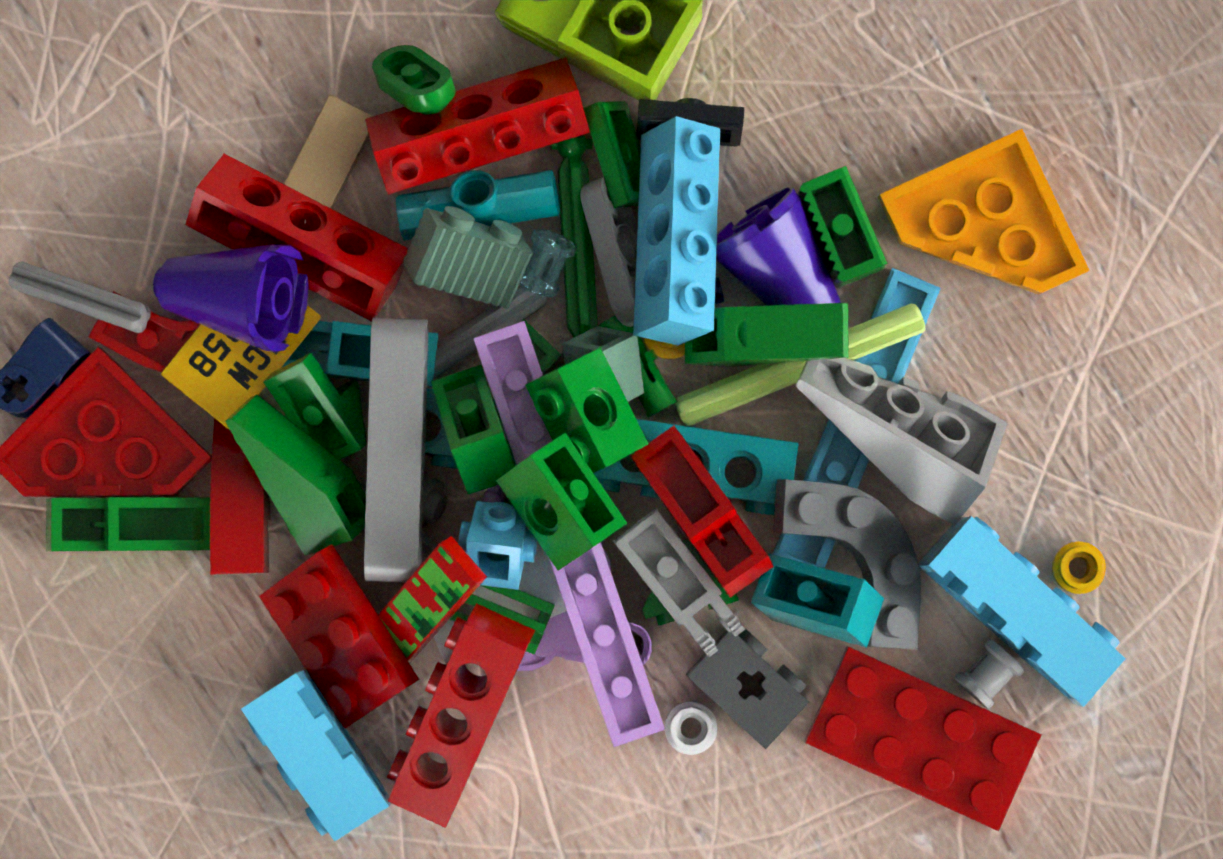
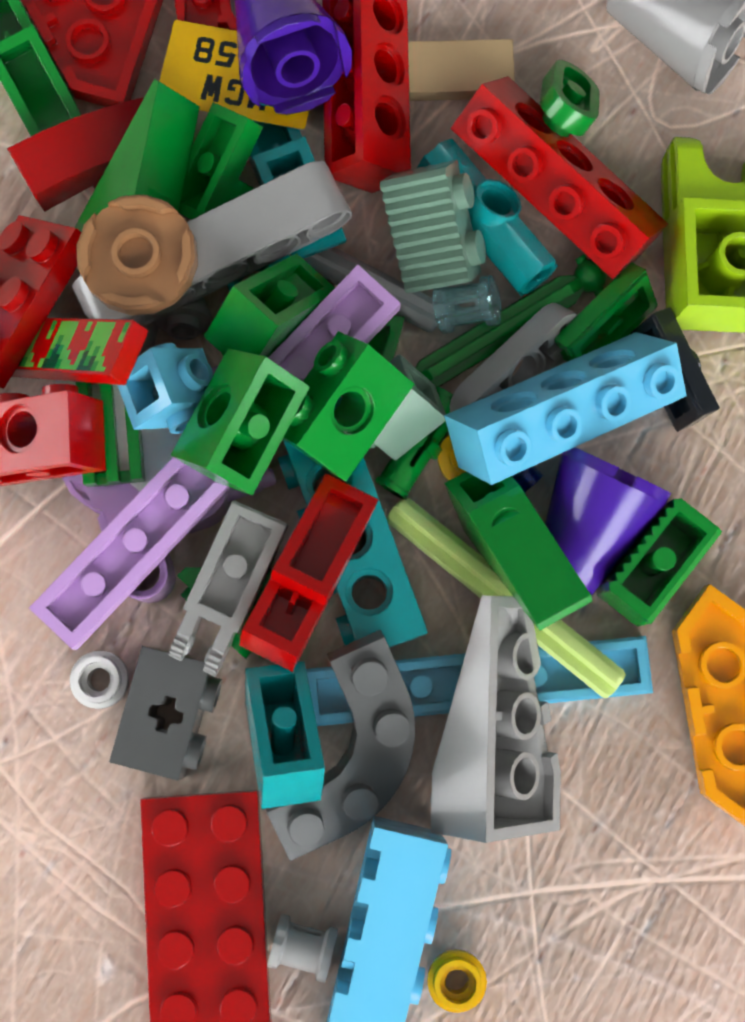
camera: 60 degrees right, 5 degrees down
(376, 512) = (137, 255): none -> medium nougat tile

